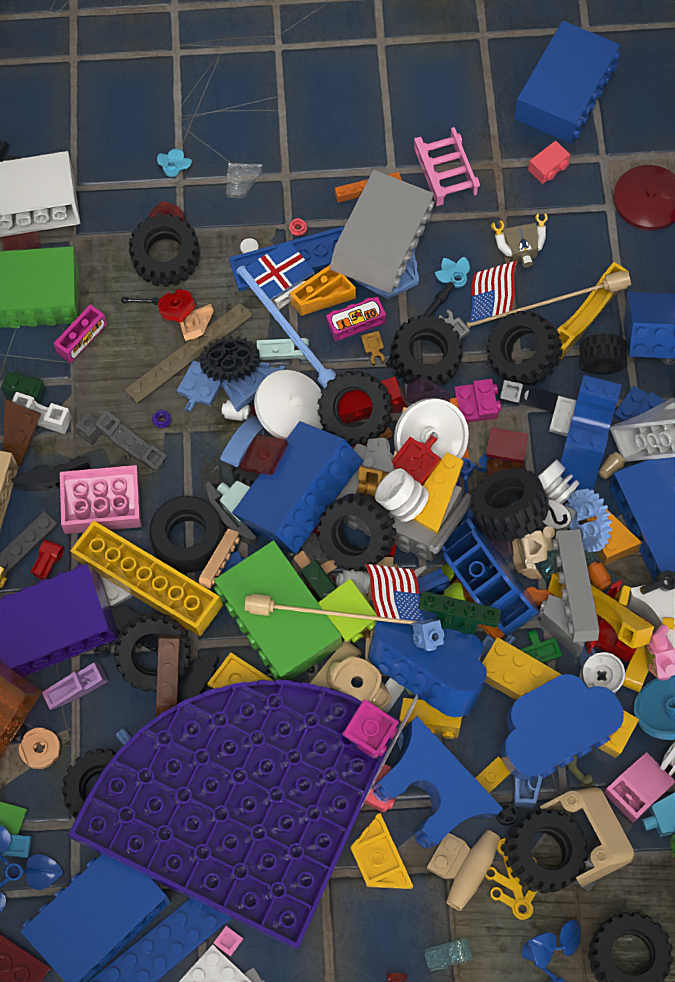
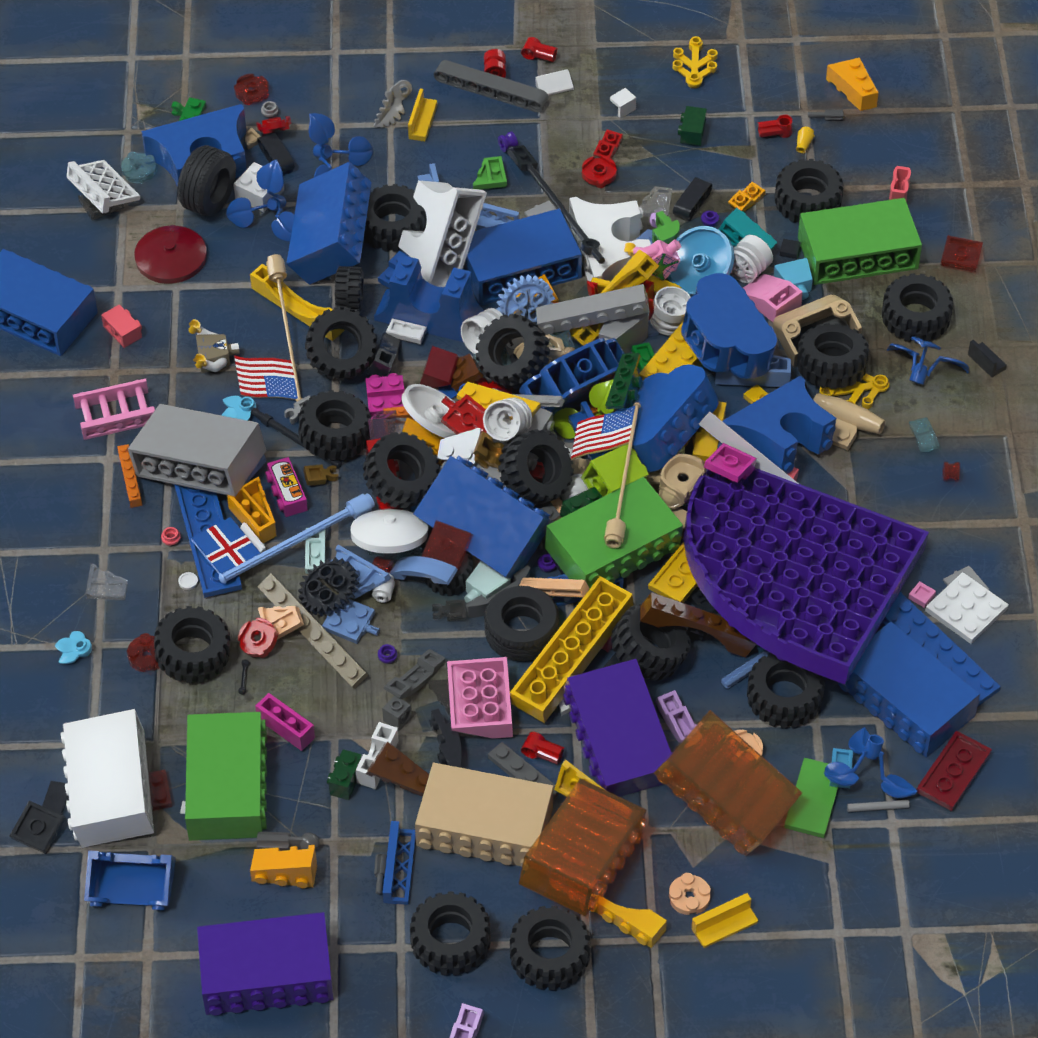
camera: 90 degrees left, 15 degrees down
(379, 858) = (840, 481): yellow wing -> none
(428, 634) = (649, 398): medium blue brick -> none

